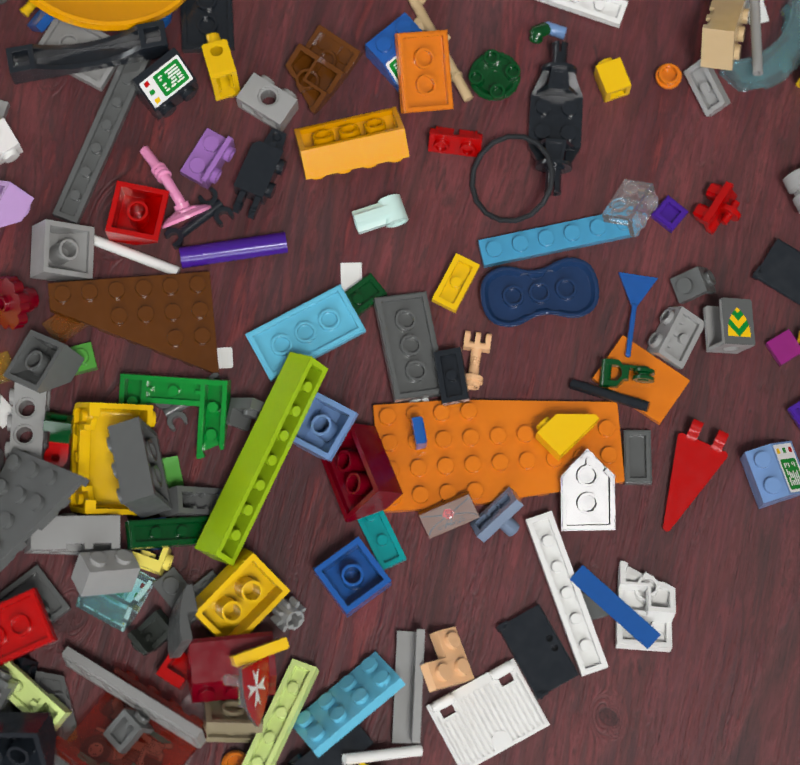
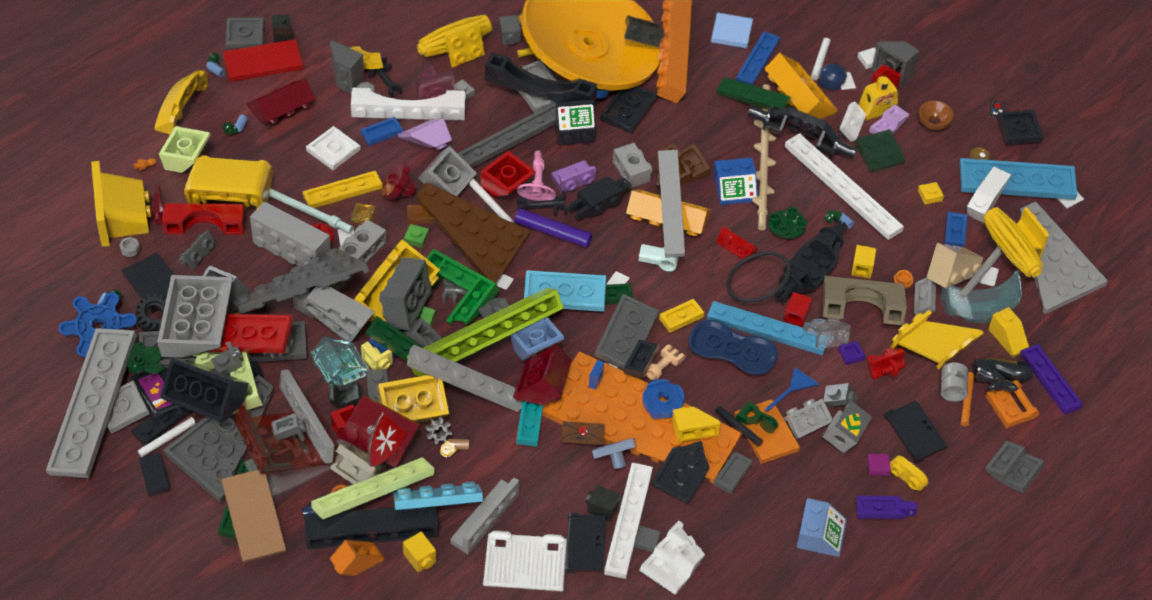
camera: 30 degrees right, 25 degrees down
(40, 21) = (522, 61): blue tile -> none
(43, 363) = (394, 217): dark grey slope -> none
(60, 437) = (373, 258): leg -> none
(105, 572) = (342, 336): light grey brick -> none
(179, 628) = (367, 385): dark grey slope -> none
(220, 67) = (617, 125): yellow torso -> none
(259, 651) = (409, 425): yellow tile -> none
(277, 539) = (463, 377): none -> light grey plate
(314, 619) = (453, 445): none -> arm
(352, 577) = (494, 431): blue brick -> none
(358, 143) = (671, 203): none -> light grey tile
(382, 754) = (438, 537): white bar -> none
(424, 71) = (742, 194): orange tile -> none
(452, 664) = (519, 514): light nougat plate -> none
(511, 432) = (662, 409): none -> blue plate
(526, 591) = (603, 502): none -> pearl dark grey brick
(579, 193) = (797, 309): none -> red brick
(615, 607) = (655, 542): blue sticker -> none
(667, 114) = (885, 295): none -> dark tan arch
(691, 470) = (766, 497): red flag -> none
(753, 145) = (935, 340): none -> yellow piece

